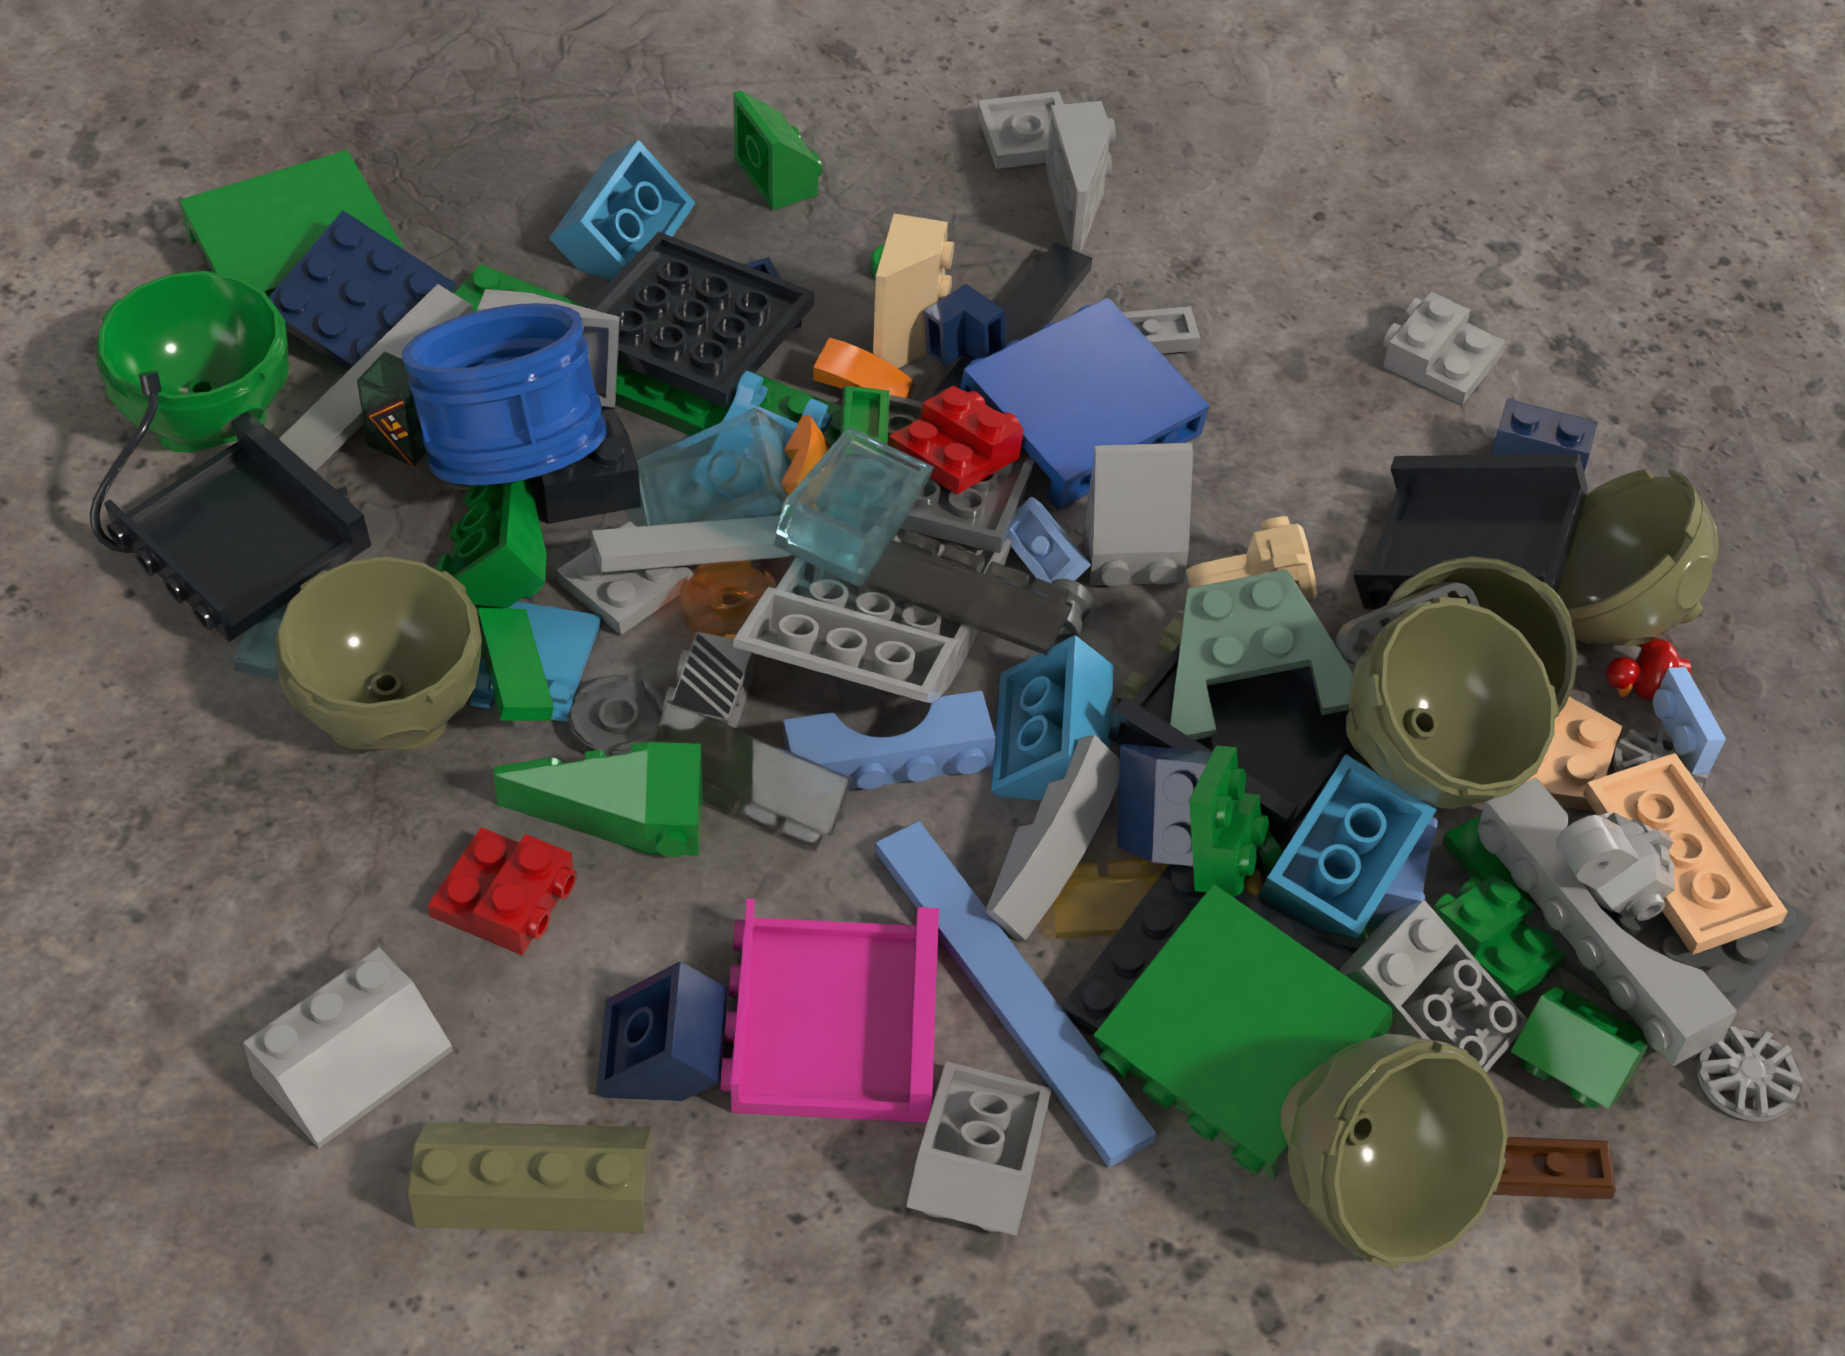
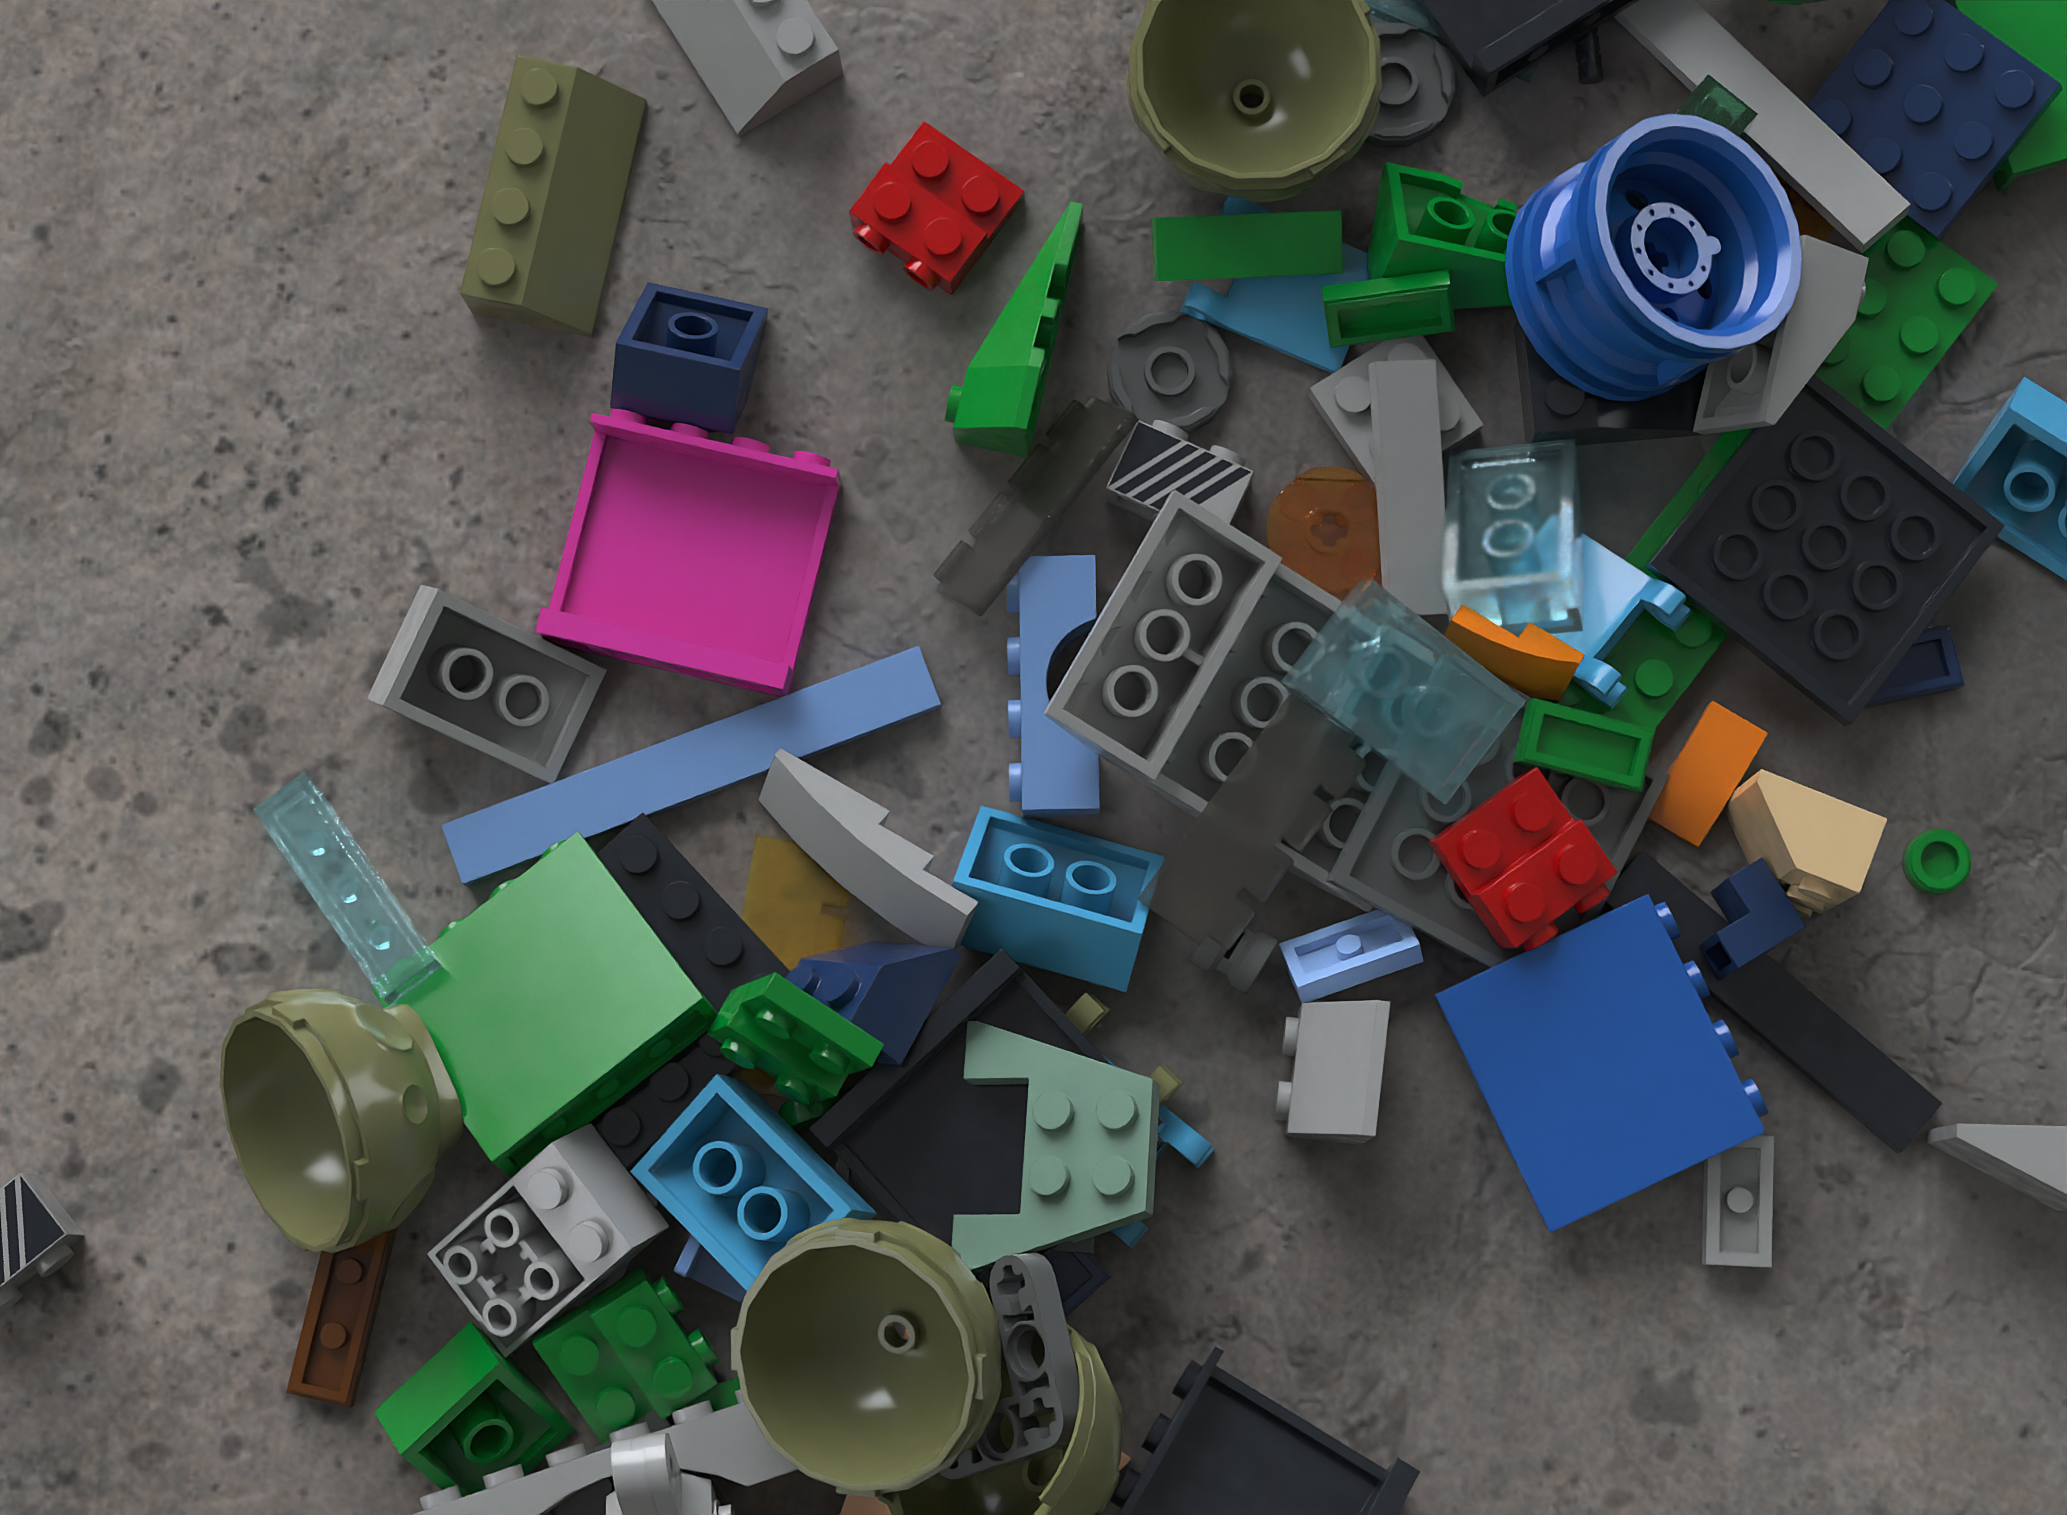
camera: 110 degrees right, 30 degrees up
(553, 571) = (1388, 308): none -> green tile
(1186, 1209) = (347, 888): none -> clear light blue tile
(1270, 550) = (1239, 1237): tan piece -> none

